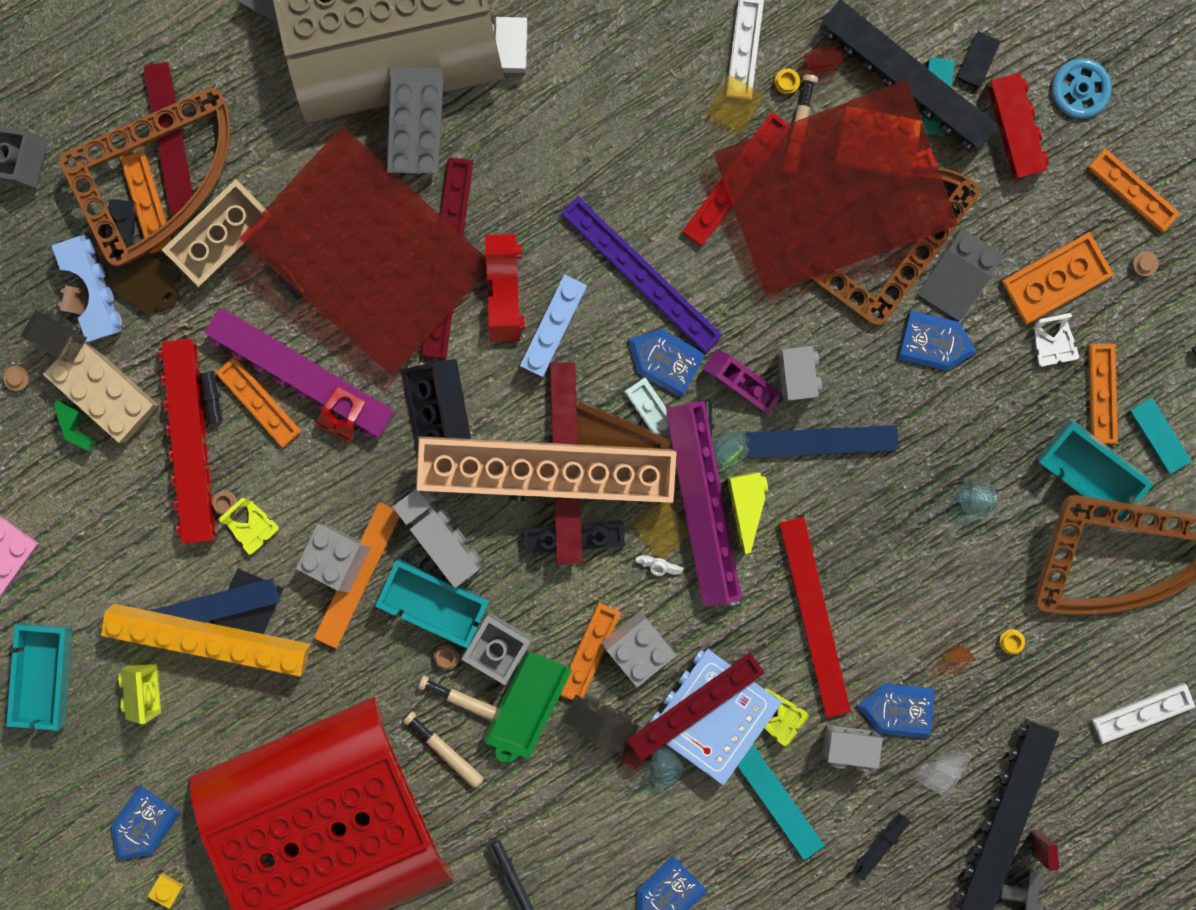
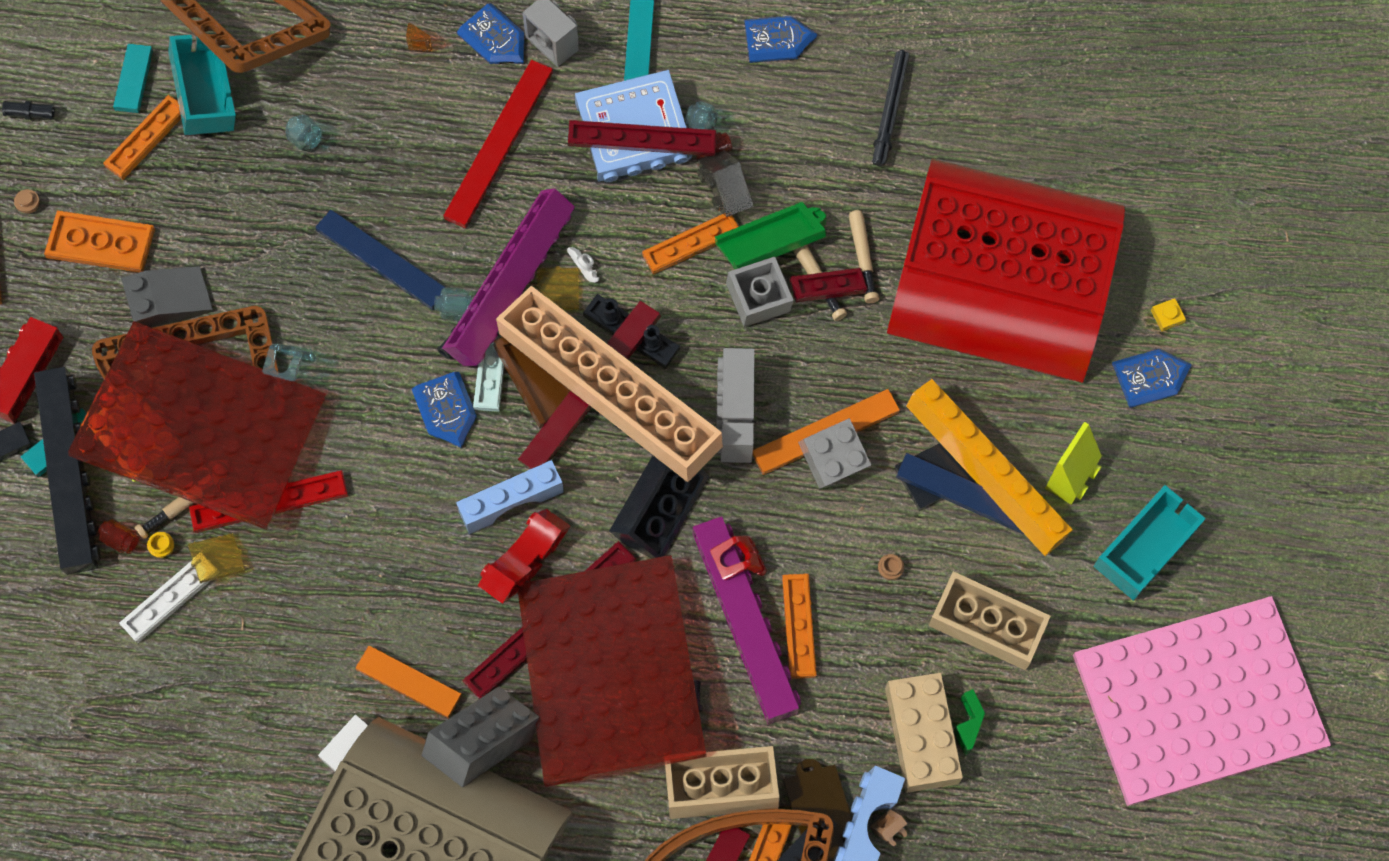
camera: 140 degrees left, 20 degrees down
(16, 378) = (989, 801): medium nougat plate -> none
(54, 335) = (926, 797): clear smoke brick -> none
(114, 515) = (989, 620): none -> tan brick
(188, 441) = (880, 637): red brick -> none
(210, 397) = (835, 658): black pin -> none
(255, 531) = (883, 526): neon yellow piece -> none
(432, 603) = (783, 362): teal piece -> none
(446, 656) = (805, 320): medium nougat plate -> none
(449, 699) = (828, 285): none -> dark red tile
(512, 128) = (408, 682): none -> orange tile
(638, 649) = (650, 212): light grey brick -> none
(641, 274) = (407, 488): dark purple tile -> none
(742, 381) = (401, 346): magenta slope -> none
(747, 502) = (478, 247): neon yellow slope -> none
(788, 721) = (579, 82): neon yellow piece -> none
(799, 373) = (353, 313): light grey brick -> none
(814, 309) = (292, 371): none -> clear light blue piece
(935, 342) = (232, 266): blue tile -> none
(1012, 641) = (371, 21): yellow plate -> none
(1056, 348) = (145, 191): white piece -> none

